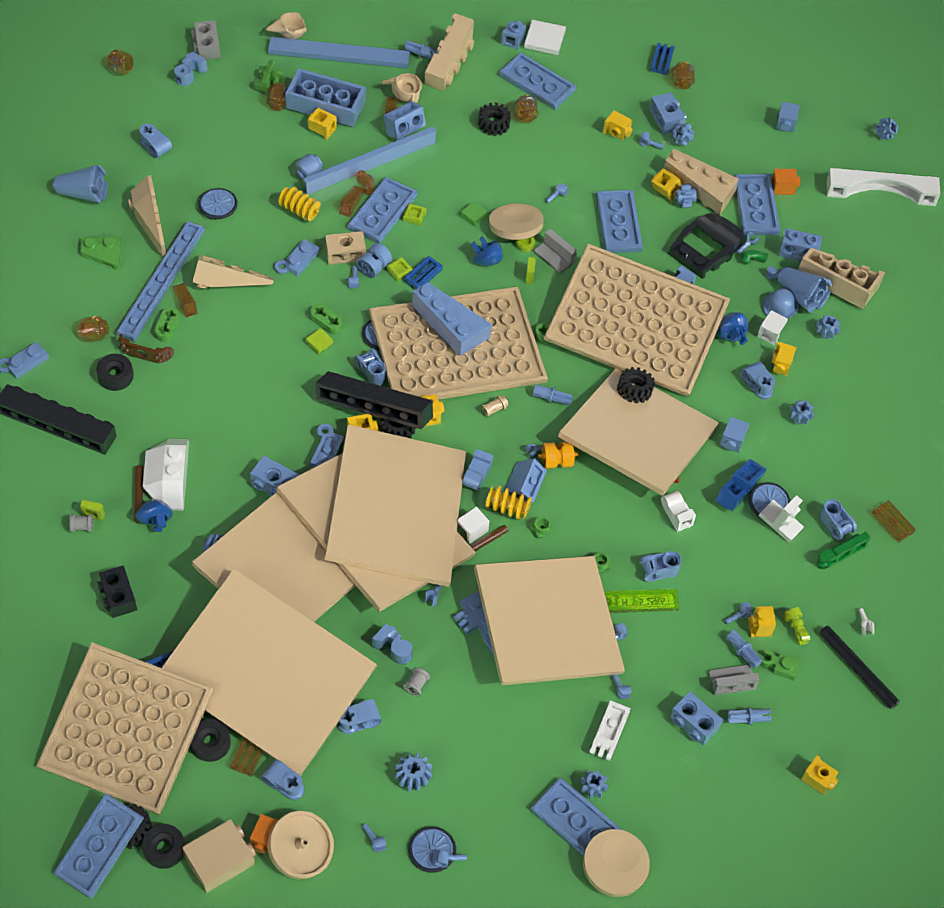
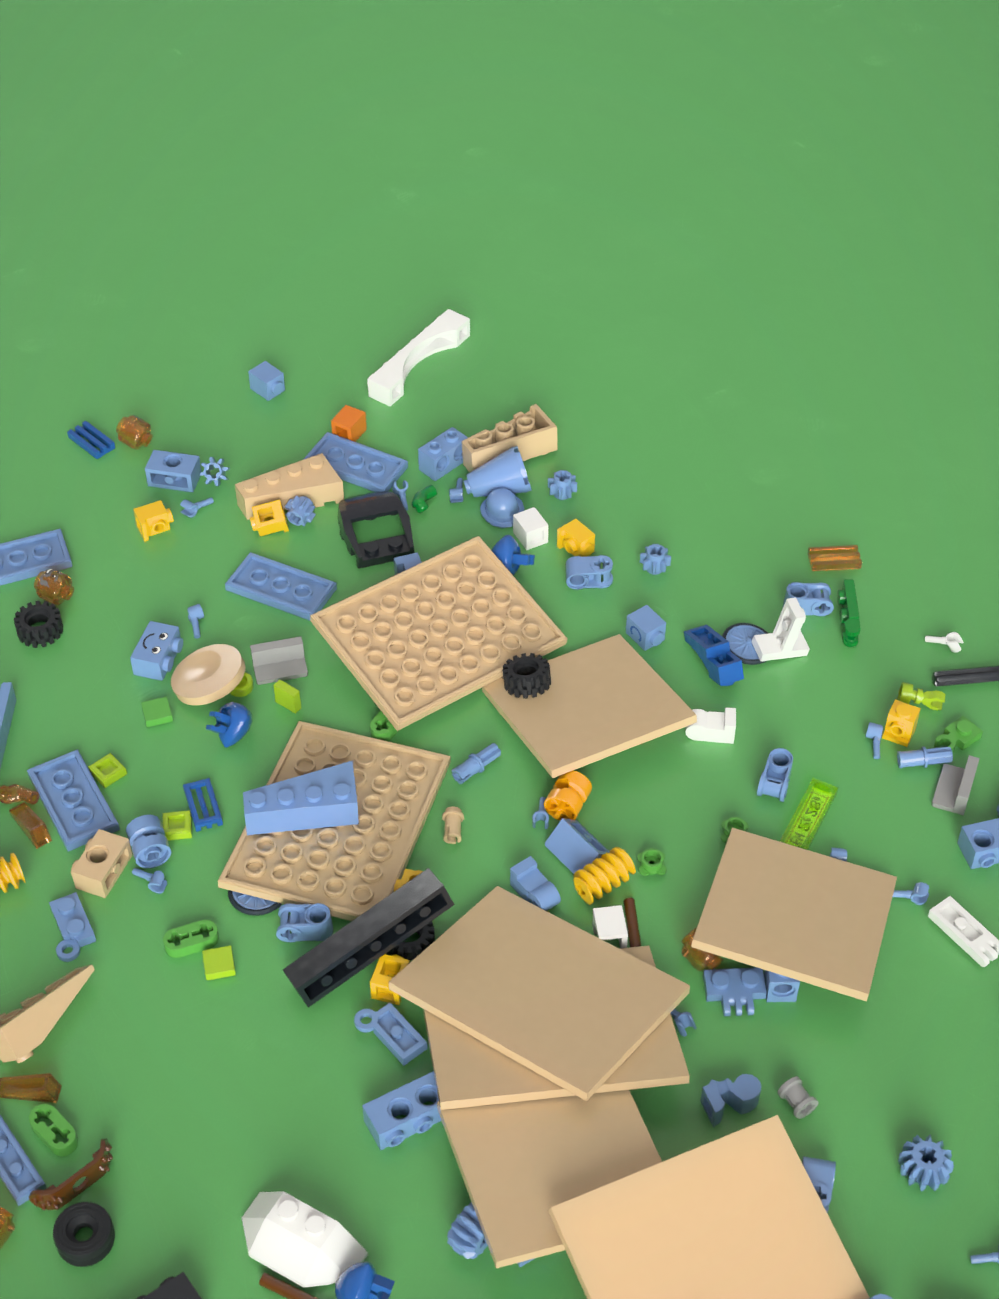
camera: 55 degrees left, 10 degrees down
(516, 186) = (156, 651): none -> medium blue brick
(886, 128) = (349, 317): medium blue gear -> none

